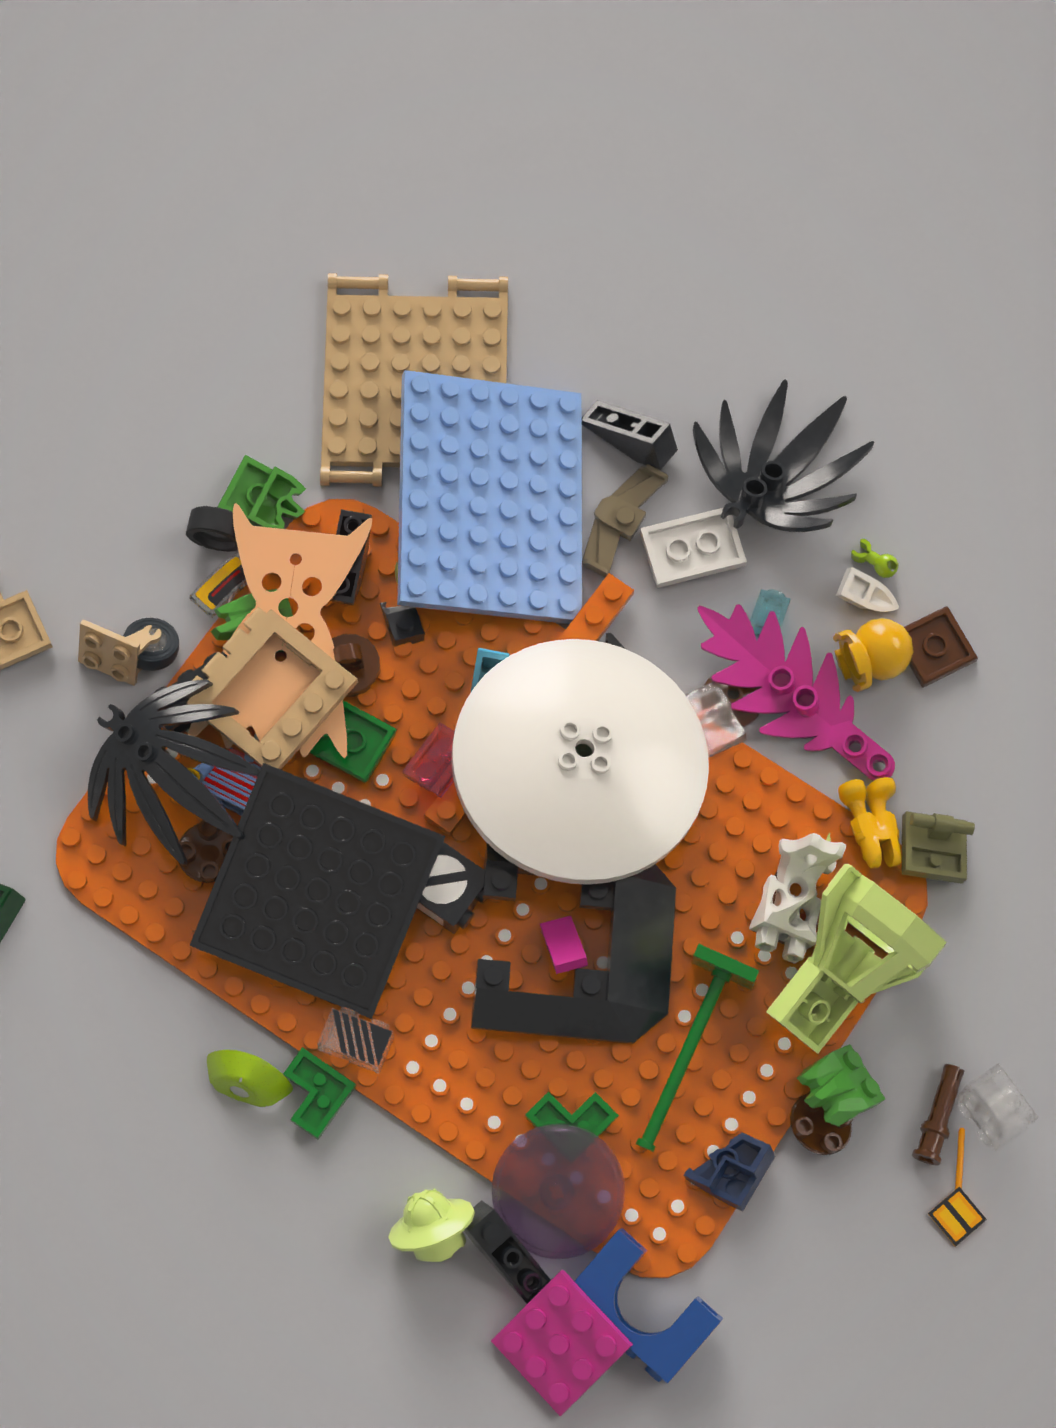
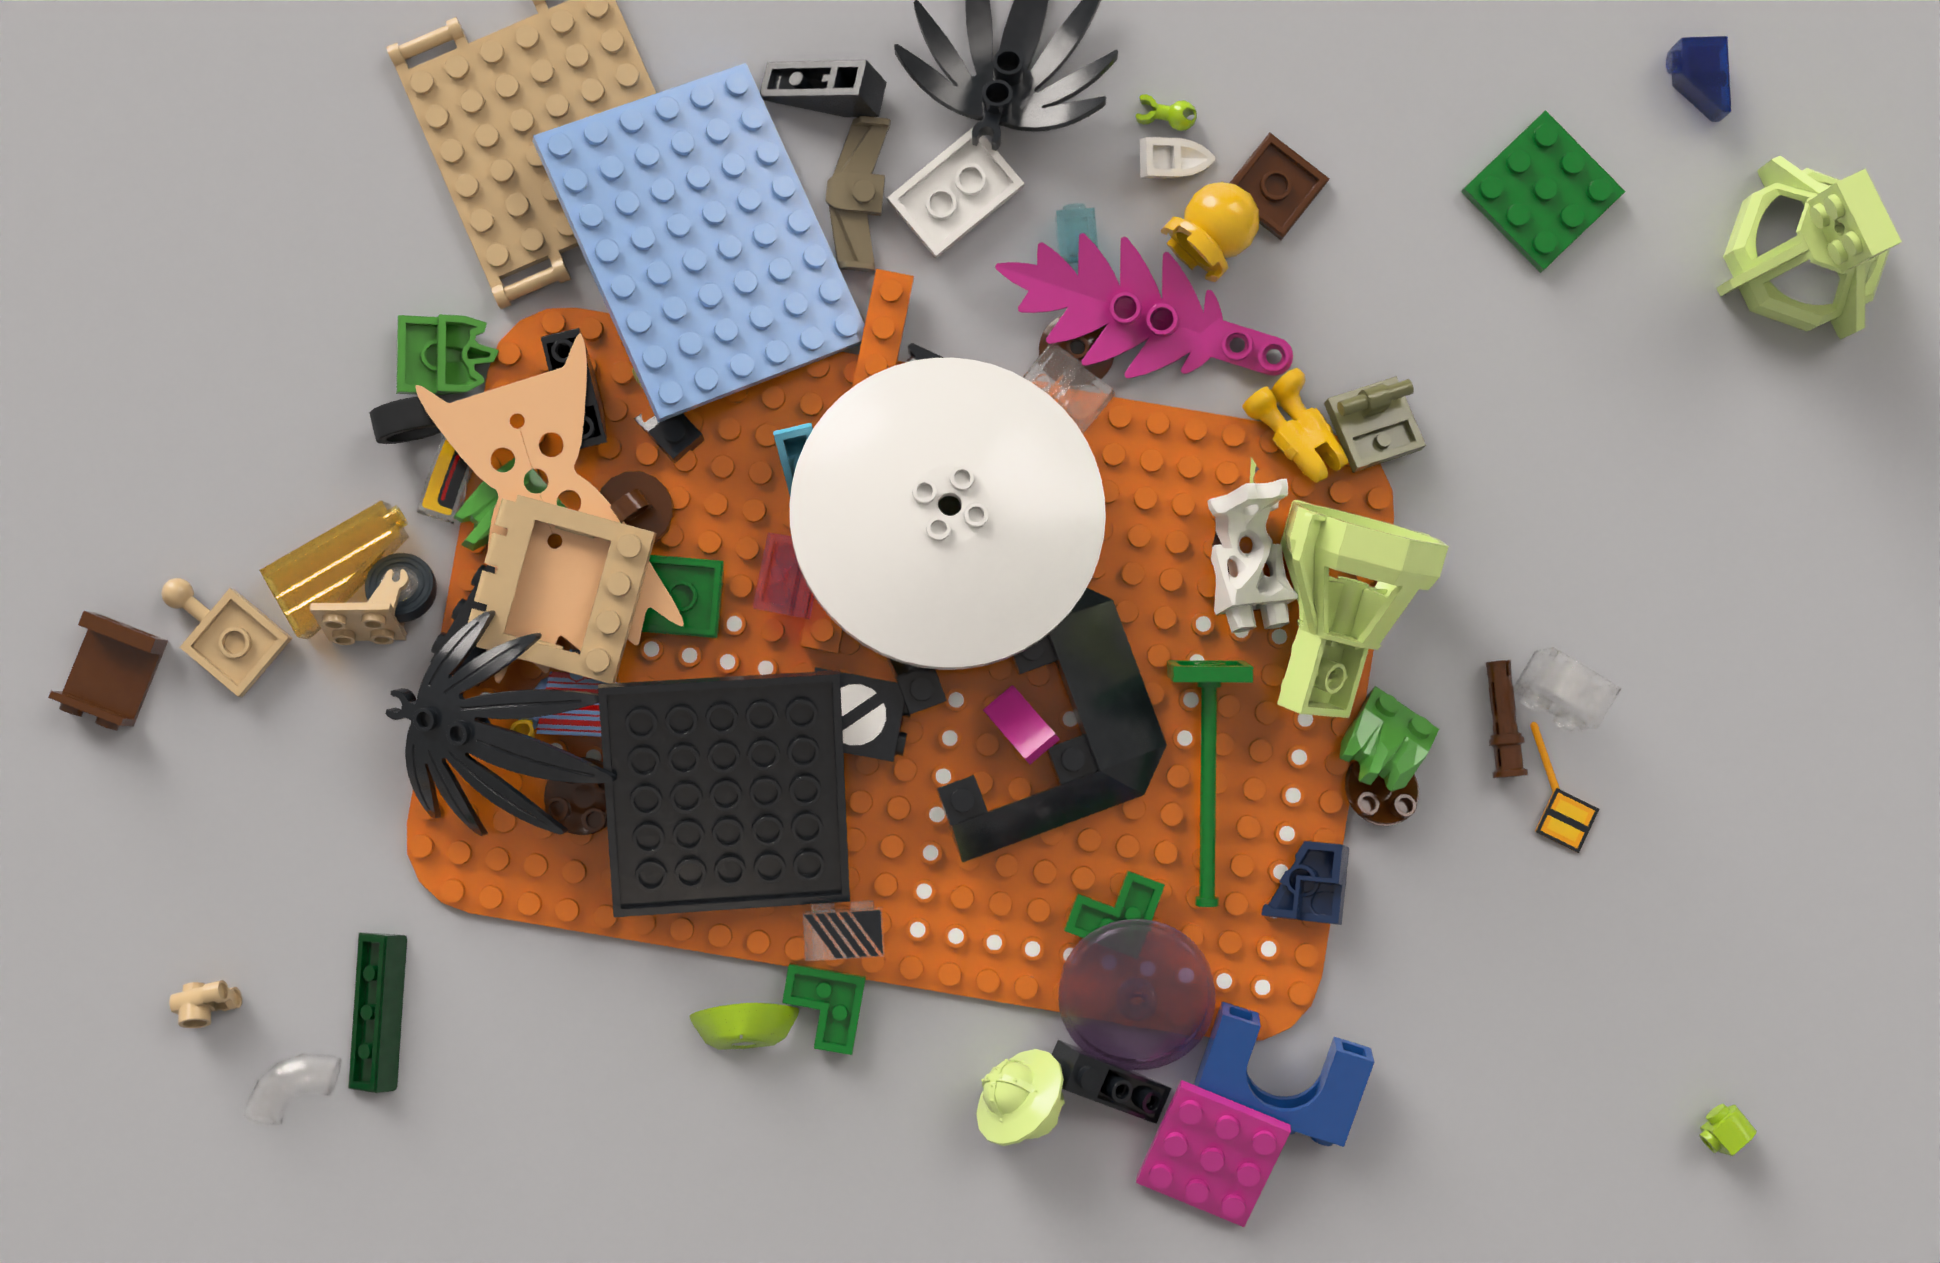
camera: 25 degrees left, 15 degrees up
(111, 605) = (333, 564): none -> clear yellow slope

